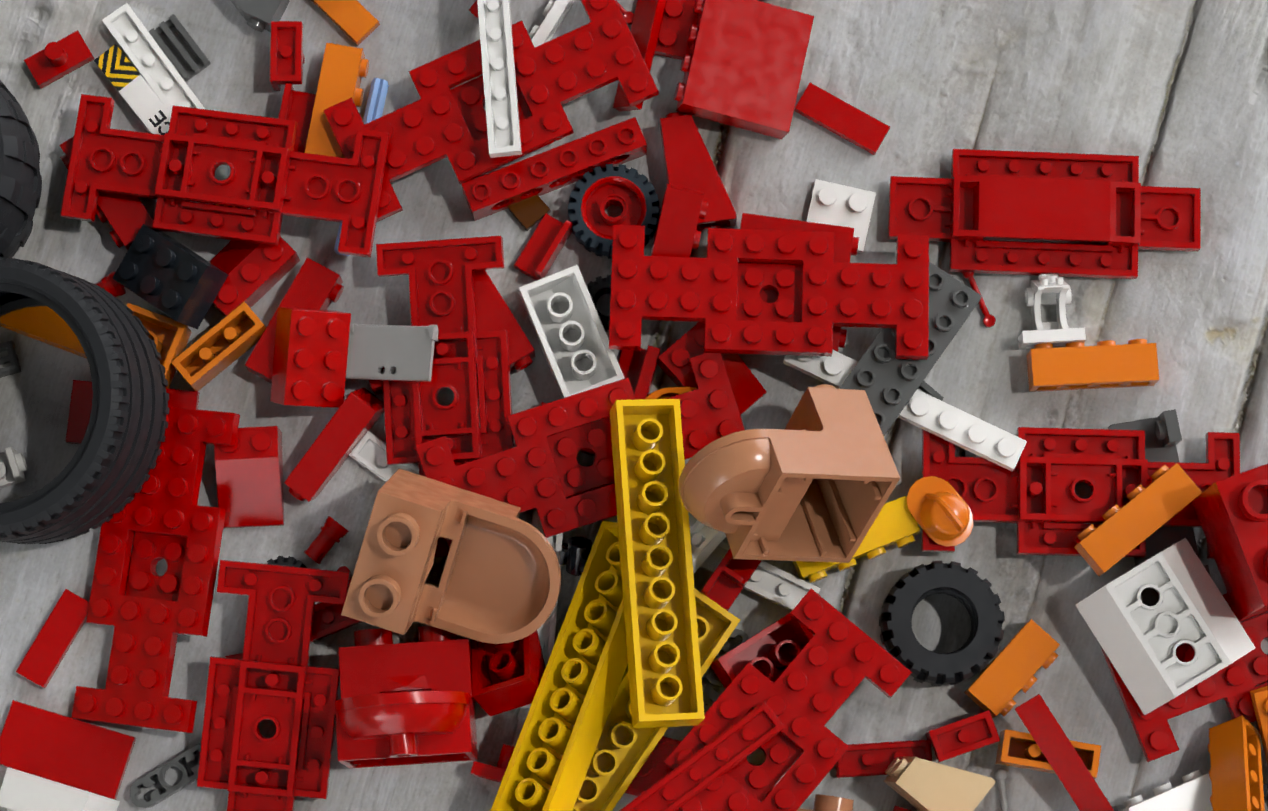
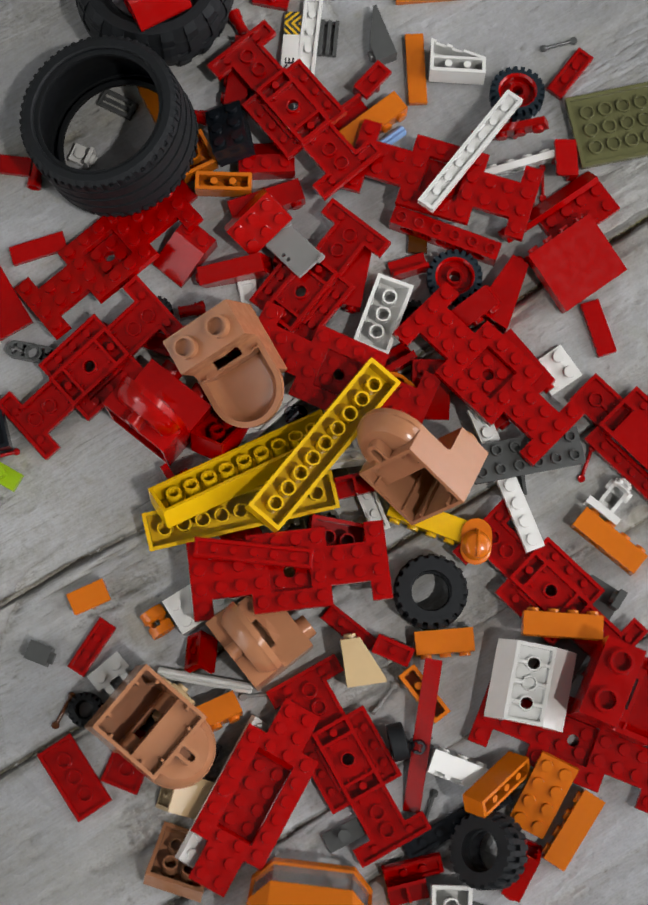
camera: 45 degrees right, 0 degrees up
(48, 127) = (237, 20): none -> red pin

